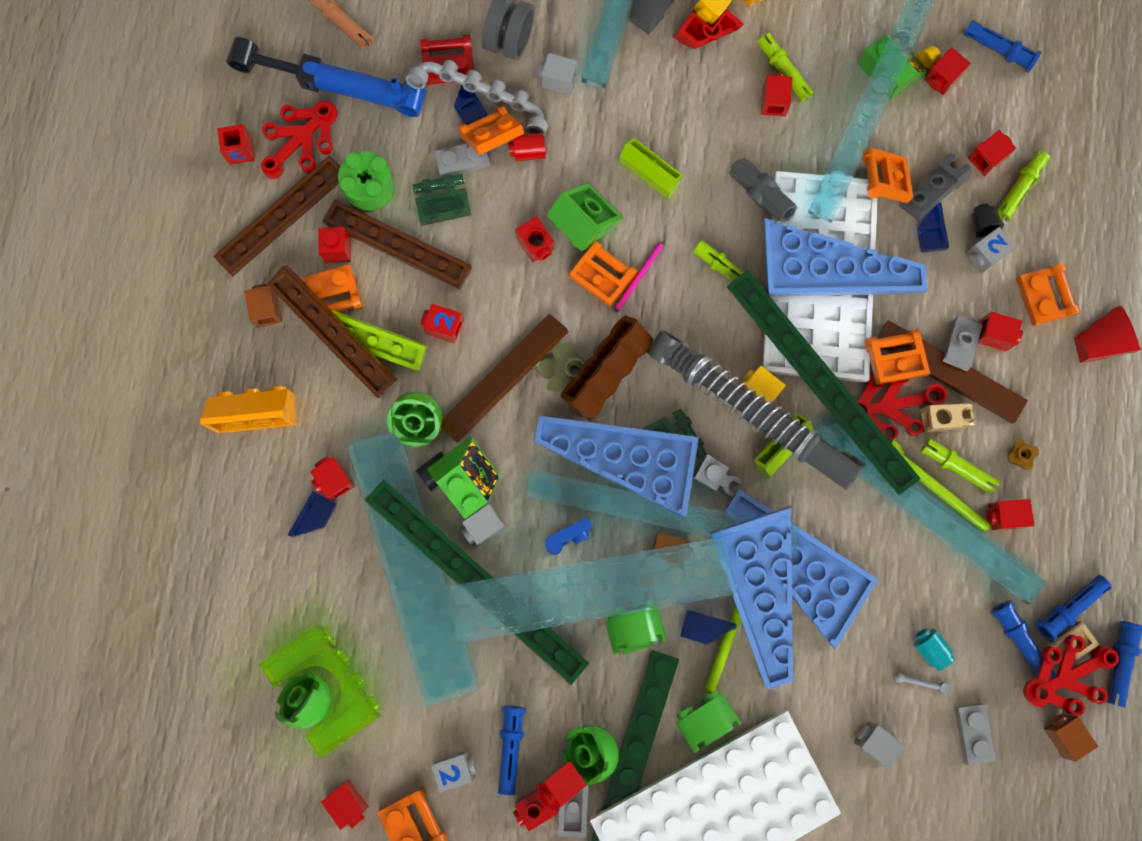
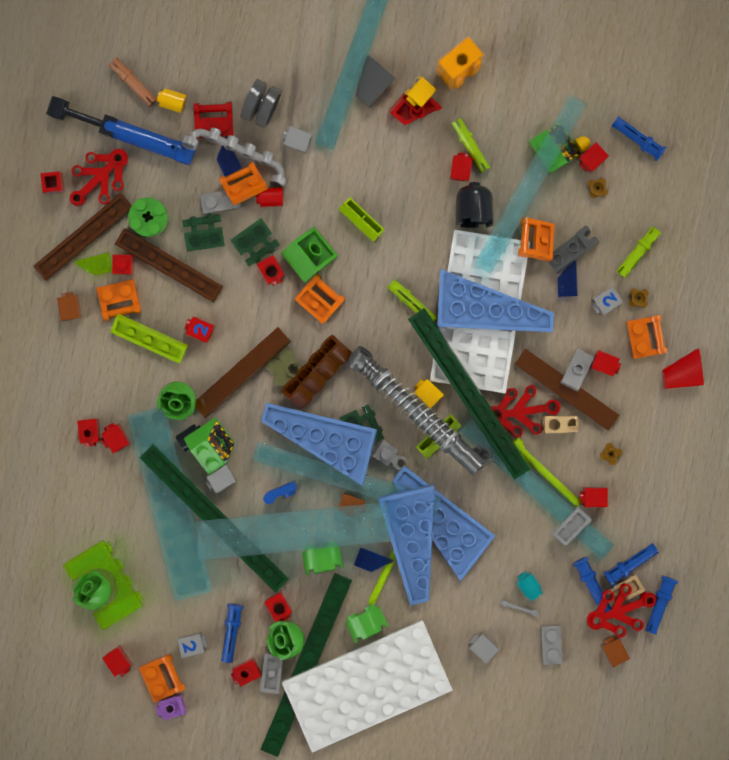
camera: 10 degrees right, 10 degrees up
(250, 410) = (59, 384): light orange slope -> none
(294, 472) = (89, 432): none -> red brick
(299, 249) = (96, 264): none -> clear neon green tile
(313, 515) = (101, 462): clear blue tile -> none
(332, 331) = (119, 331): reddish brown tile -> none
(392, 36) = (171, 100): none -> yellow brick
(505, 200) = (250, 238): none -> clear green plate
(560, 786) = (263, 659): red brick -> none
(574, 693) = (278, 598): none -> red brick
(638, 277) = (347, 300): dark pink axle -> none
(763, 190) = (442, 245): dark grey piece -> none
(801, 139) = (474, 206): none -> black cylinder
(897, 365) = (528, 384): orange plate -> none
(951, 460) = (565, 460): lime pin -> none
(961, 105) = (602, 188): none -> pearl gold plate
(986, 220) = (607, 277): black hat -> none
(987, 557) = (571, 526): none -> light grey plate
(992, 152) = (619, 225): red brick -> none
(1037, 242) = (642, 294): none -> pearl gold plate

